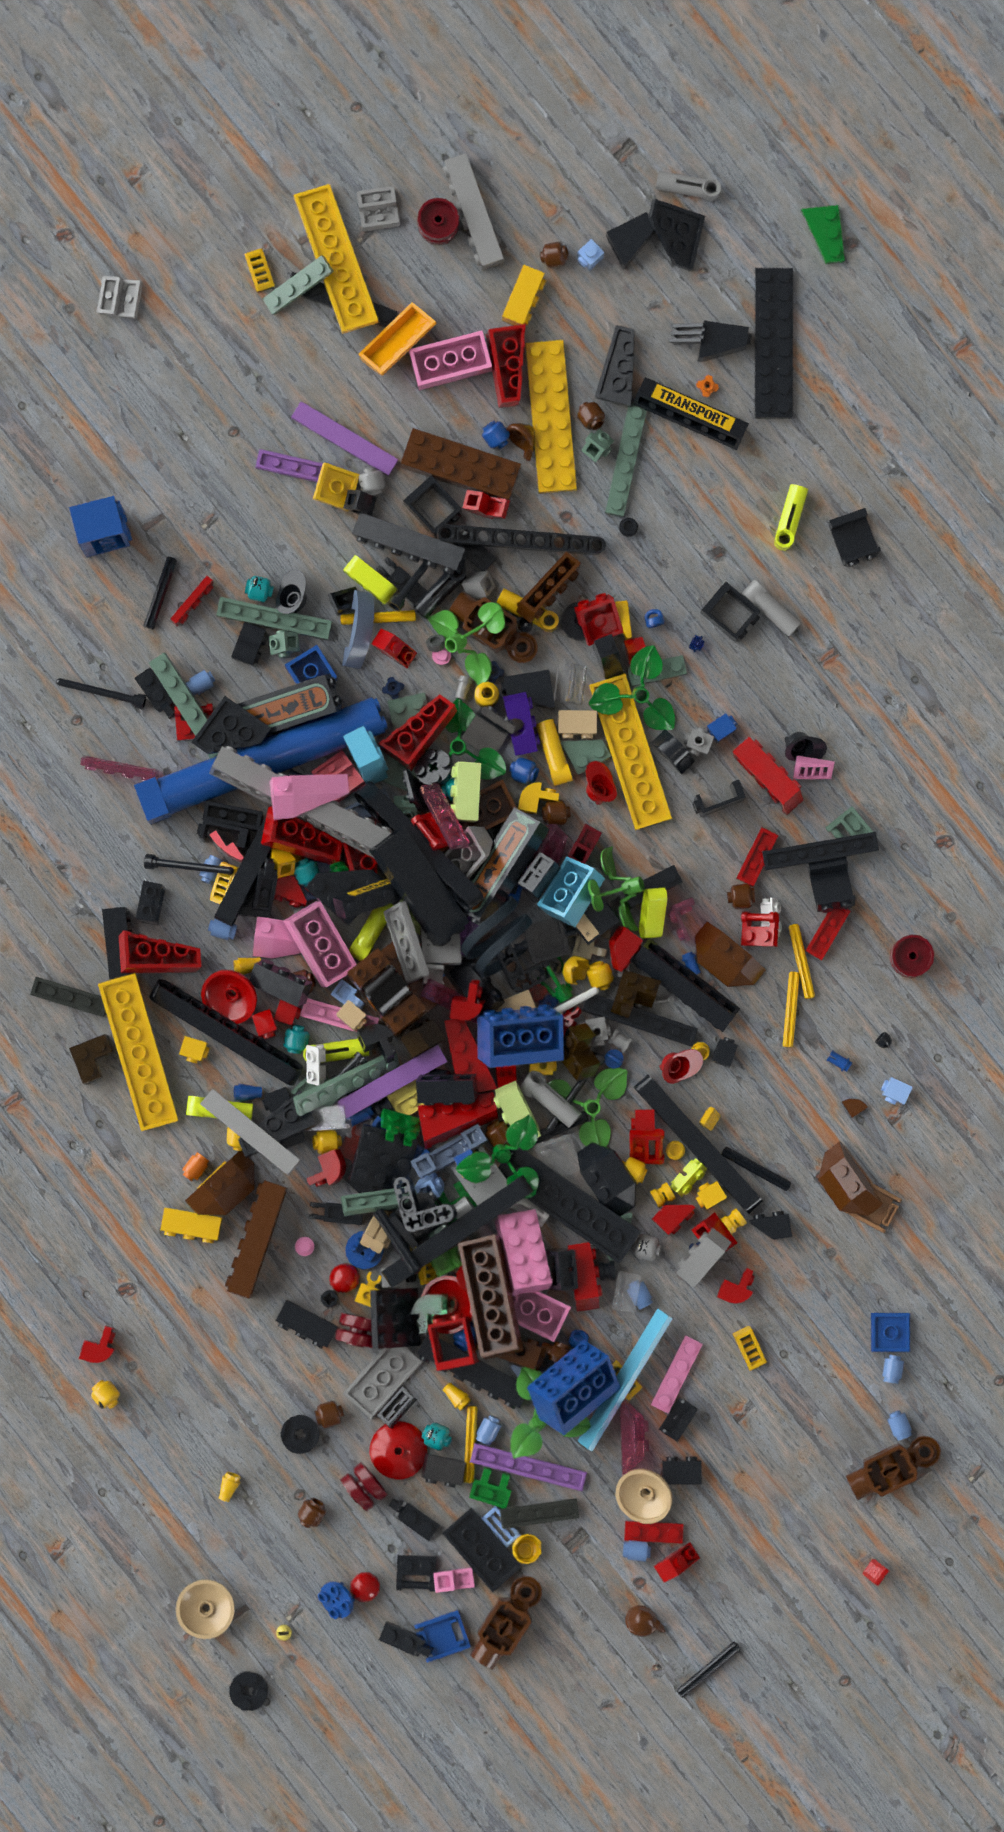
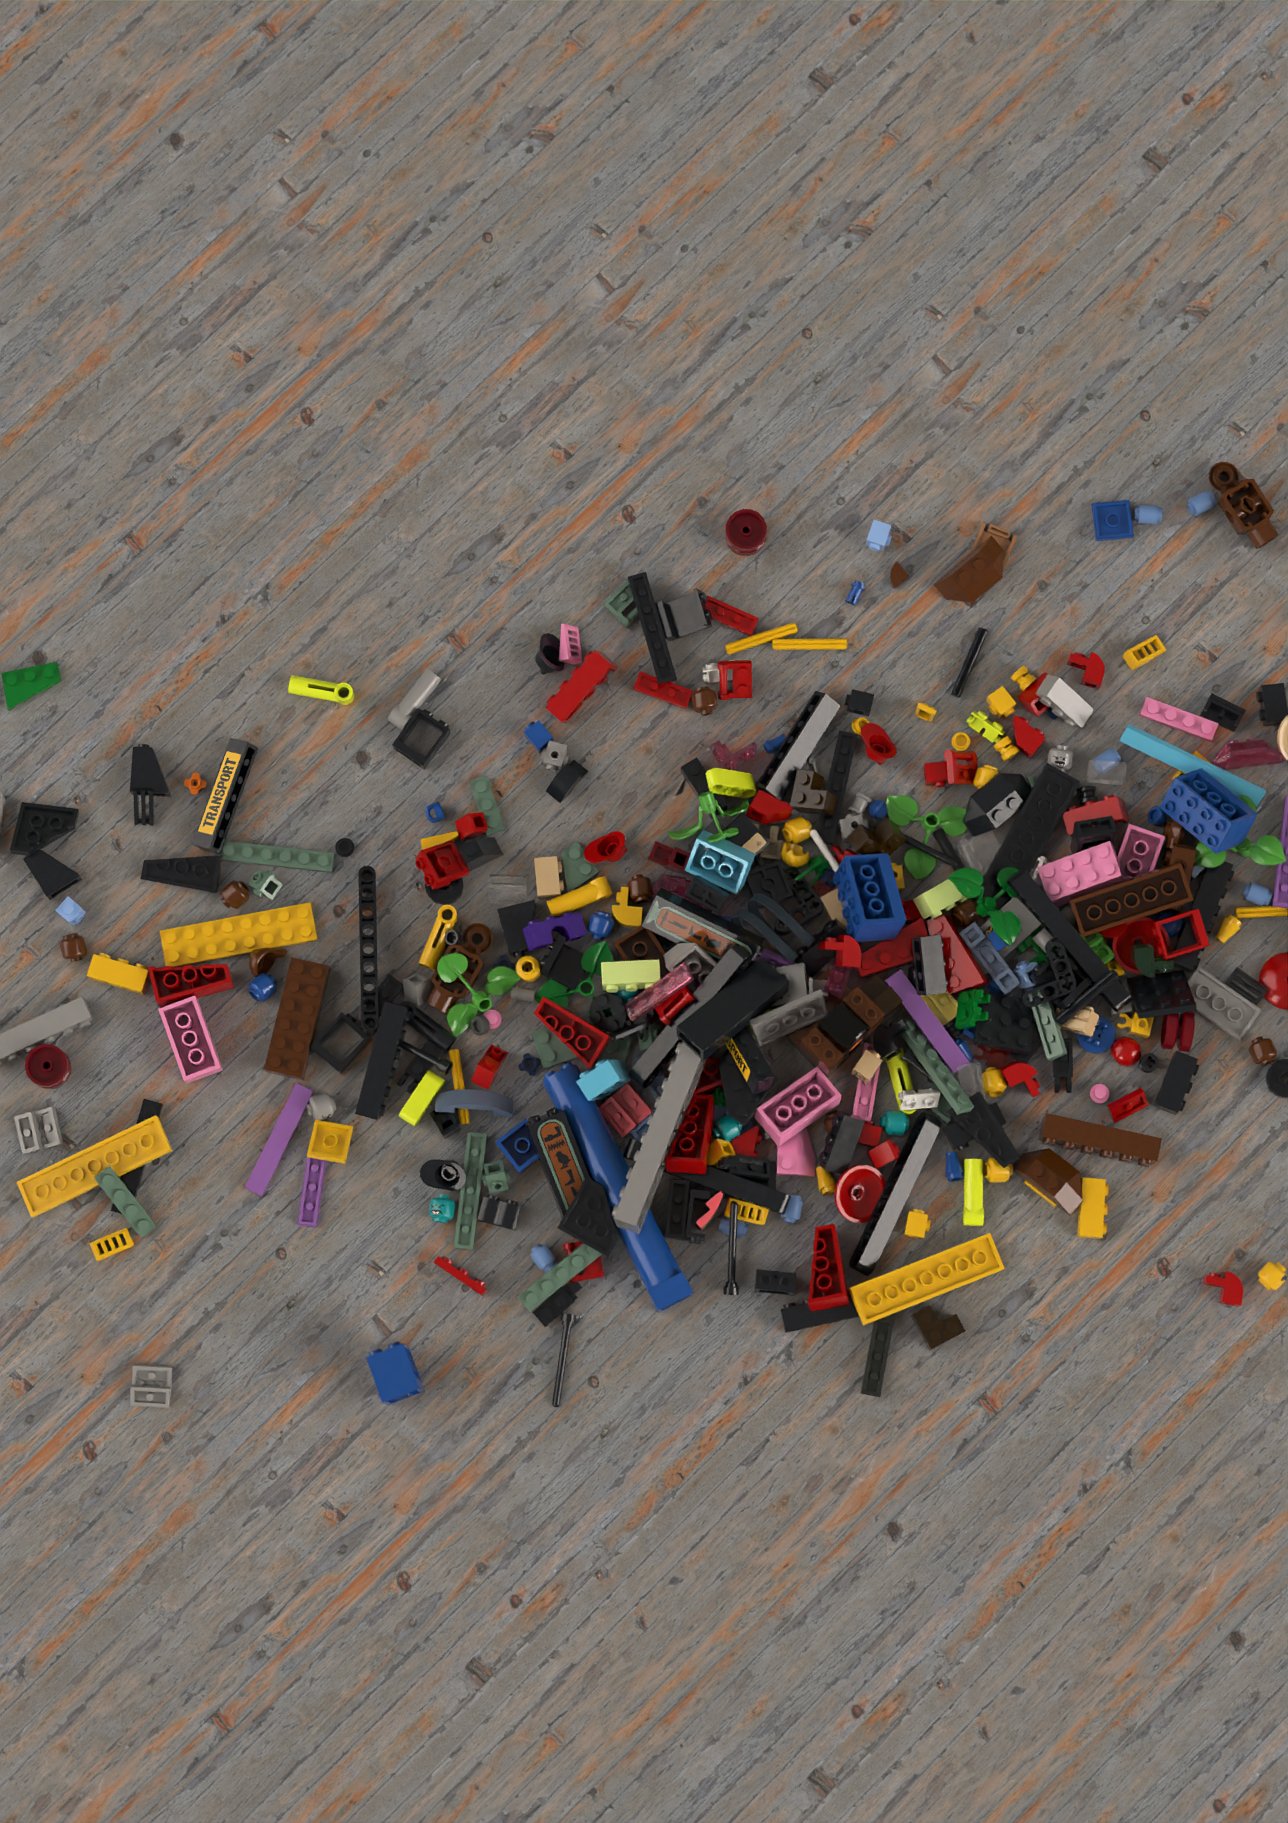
camera: 90 degrees left, 5 degrees down
(111, 767) = (640, 1322): clear pink plate -> none
(160, 593) = (455, 1310): black axle -> none
(195, 1167) = (1034, 1210): orange brick -> none
(250, 1132) = (995, 1155): light grey tile -> none
(289, 1272) = (1127, 1105): none -> red plate
(305, 792) = (654, 1134): bright pink wedge -> none
(345, 992) = (843, 1079): light blue plate -> none
(359, 501) = (344, 1115): black brick -> none
(369, 933) = (790, 1065): neon yellow piece -> none
(397, 339) = (173, 1094): light orange slope -> none
(436, 1436) = (1270, 943): teal head -> none
(485, 506) = (336, 988): red brick -> none
(536, 1087) = (916, 879): light grey piece -> none
(548, 587) = (414, 916): reddish brown brick -> none
(633, 760) = (571, 823): yellow plate -> none
(645, 664) = (527, 799): green plant -> none
(696, 643) = (455, 769): clear blue plate -> none
(698, 1144) = (952, 719): black beam -> none
(726, 958) = (765, 711): reddish brown wedge -> none
(738, 794) = (604, 712): black panel -> none
(773, 343) = (146, 723): black plate -> none
(774, 1227) = (1024, 638): black slope -> none
(853, 537) = (336, 627): black panel -> none
(883, 1040) = (829, 553): black hinge -> none

